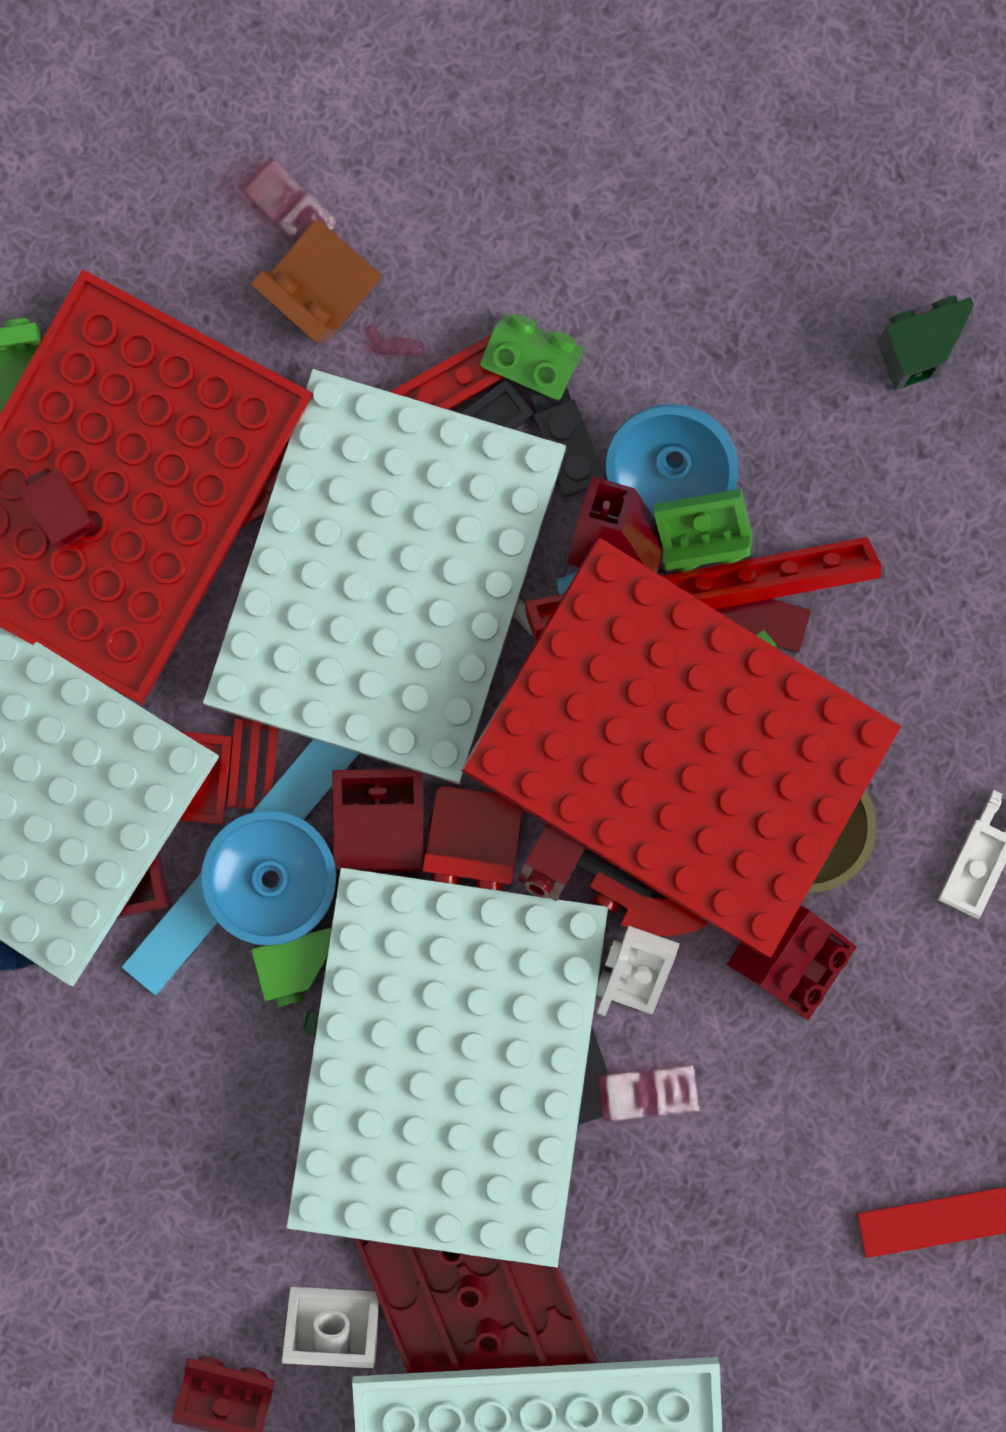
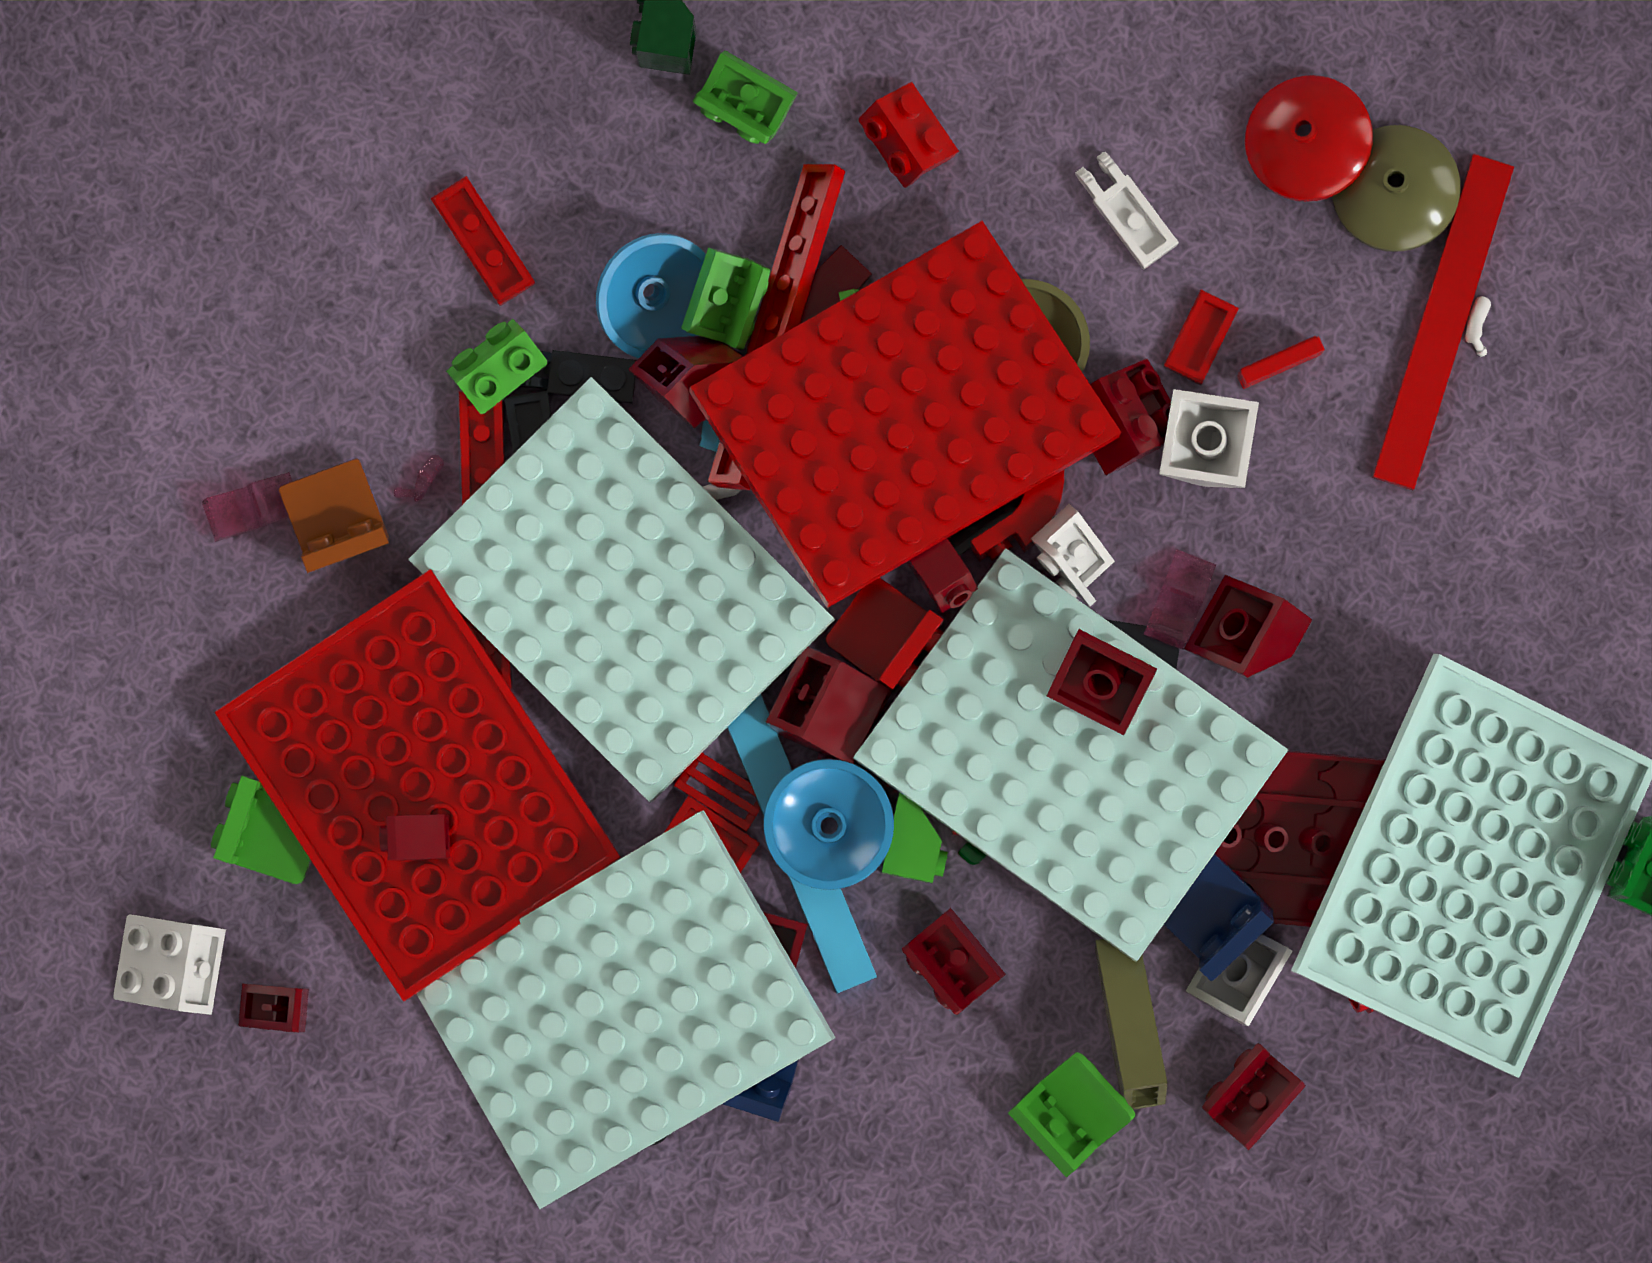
camera: 65 degrees left, 0 degrees up
(119, 1240) = (1072, 1113): none -> bright green bracket
(203, 1057) = (952, 962): none -> dark red bracket
(227, 1255) = (1131, 1027): none -> olive slope
(370, 1284) = (1219, 917): none -> dark blue bracket
(526, 1060) = (1101, 682): none -> dark red slope
(641, 284) = (483, 241): none -> red tile
(652, 1170) = (1247, 628): none -> dark red slope
(809, 1042) = (1209, 439): none -> white slope
(898, 451) = (745, 99): none -> bright green bracket
(902, 985) = (1201, 337): none -> red tile
(918, 1071) = (1280, 361): none -> red tile
(946, 617) = (907, 134): none -> red bracket

